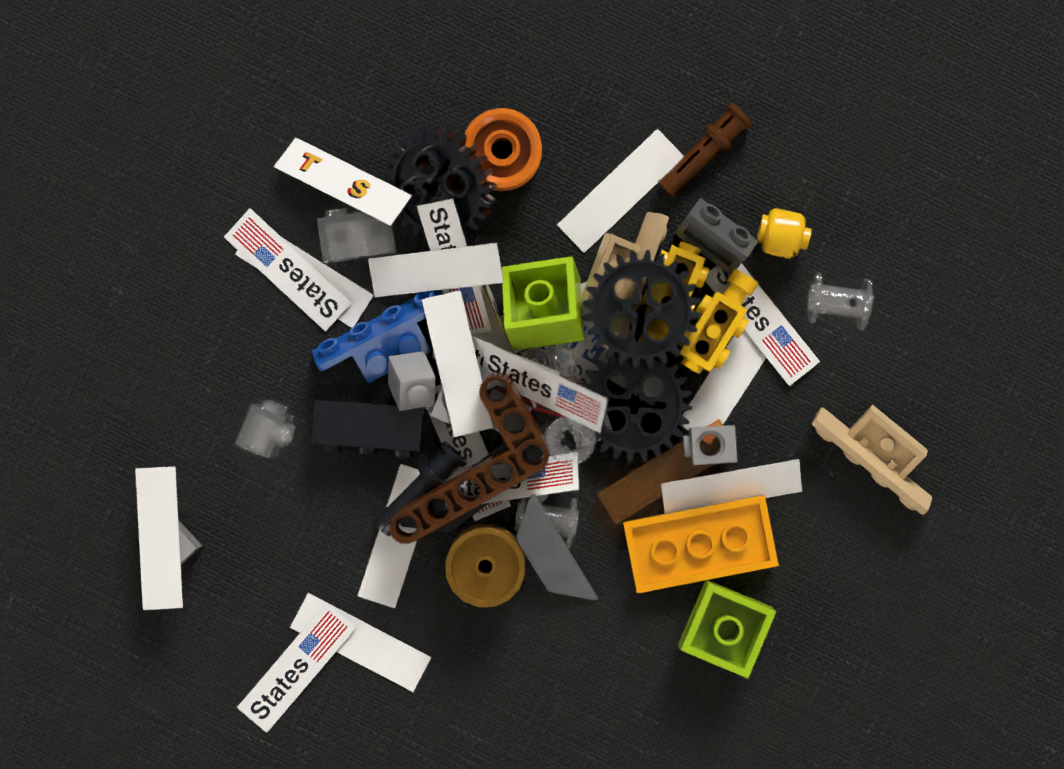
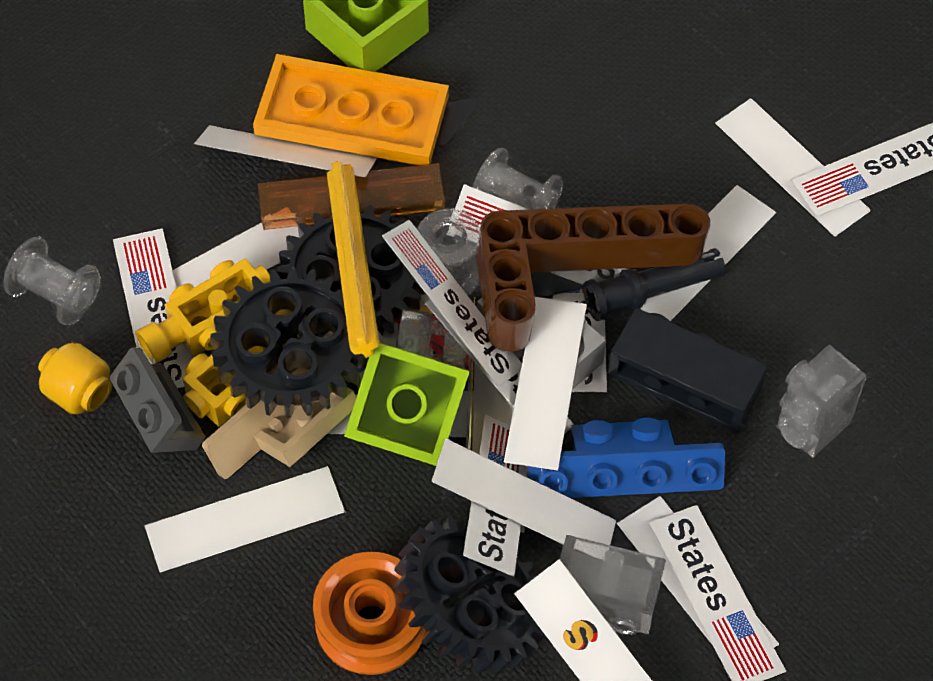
camera: 155 degrees left, 30 degrees down
(411, 380) = (611, 386): light grey brick -> none
(485, 543) = (610, 161): pearl gold wheel -> none
(550, 554) = (529, 151): black sticker -> none
(629, 392) = (352, 260): none -> yellow axle
(717, 138) = (174, 493): reddish brown pin -> none
(727, 445) = (280, 171): light grey brick -> none
(882, 450) = (99, 120): tan bracket -> none

